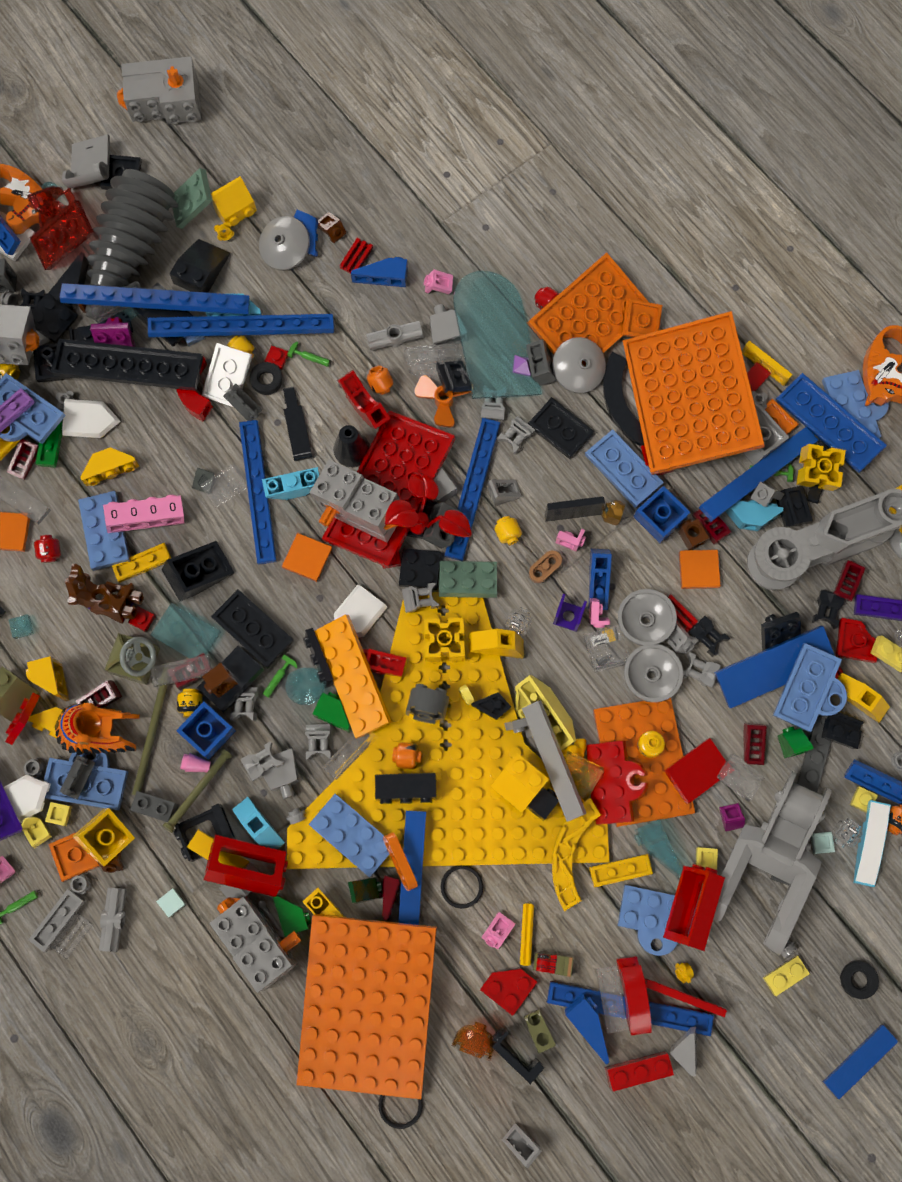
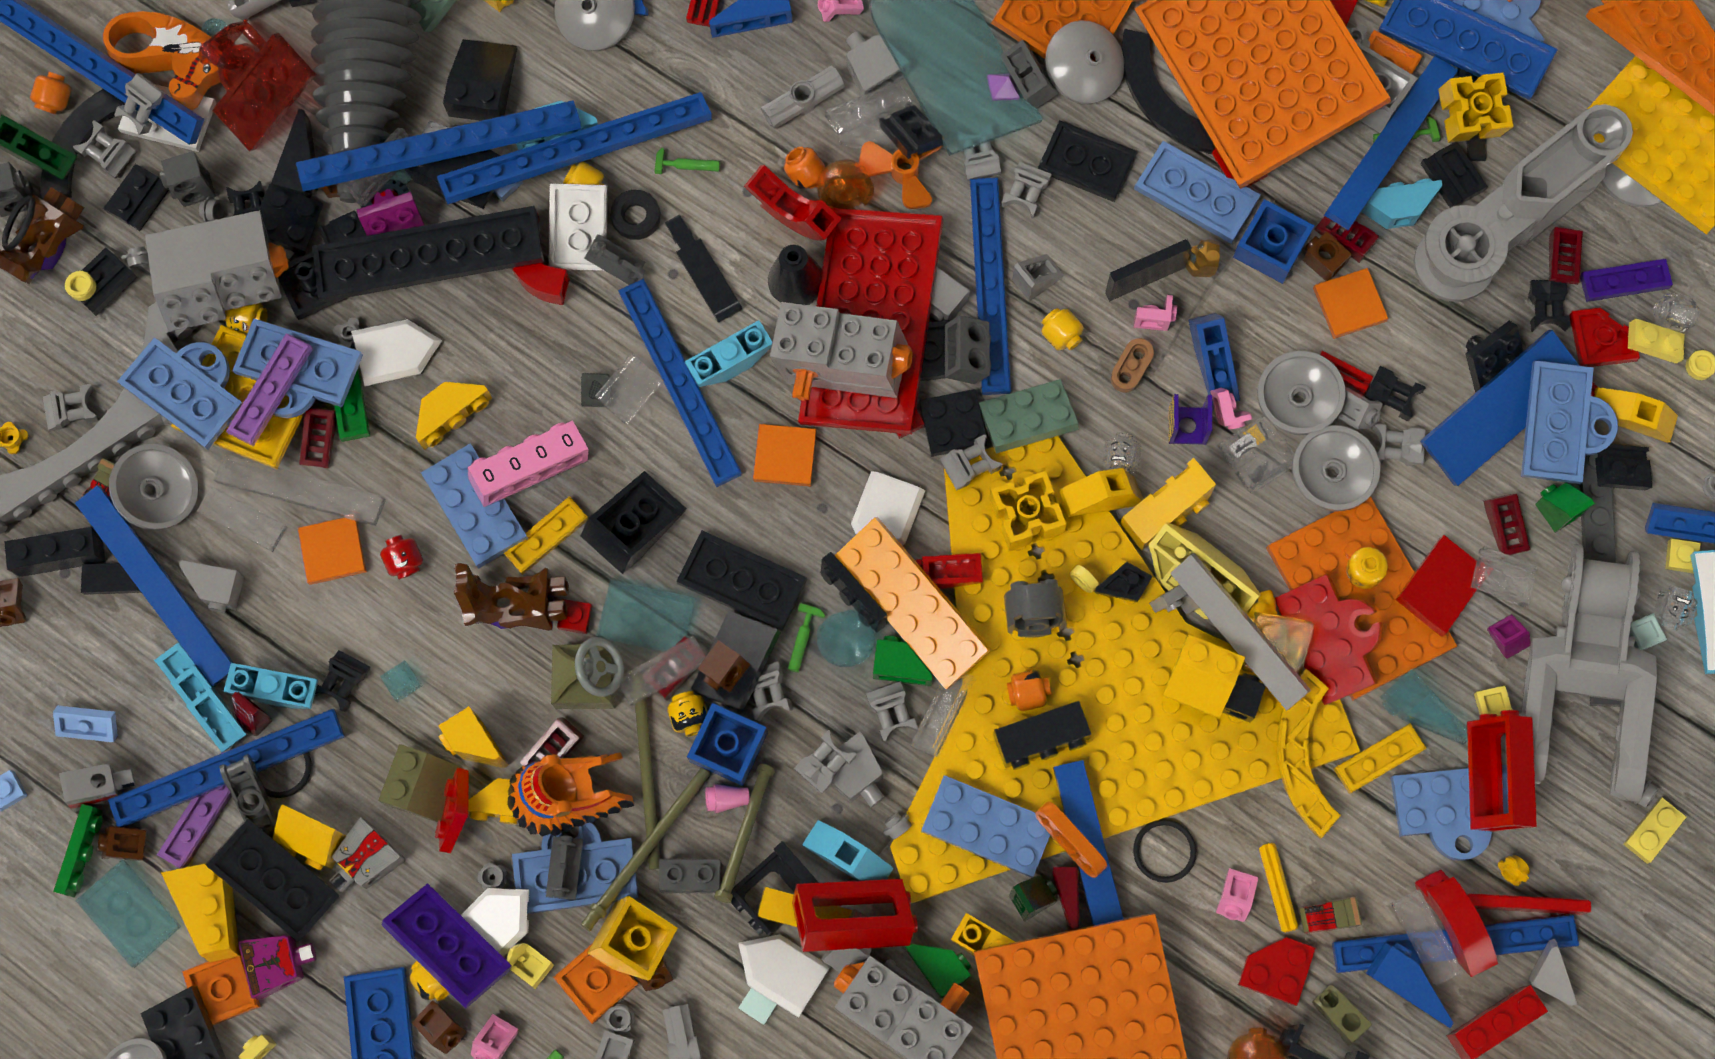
camera: 15 degrees left, 0 degrees up
(58, 814) = (553, 930): light yellow plate -> none
(131, 781) = (599, 909): none -> olive bar
(189, 888) = (782, 971): none -> white tile
(224, 235) = (503, 21): yellow plate -> none
(277, 356) = (640, 178): red plate -> none
(400, 398) = (845, 185): none -> clear orange cylinder
(401, 512) = (915, 349): red plant -> none
(539, 663) = (1169, 504): none -> yellow wedge
(765, 493) = (1409, 169): light grey bracket -> none

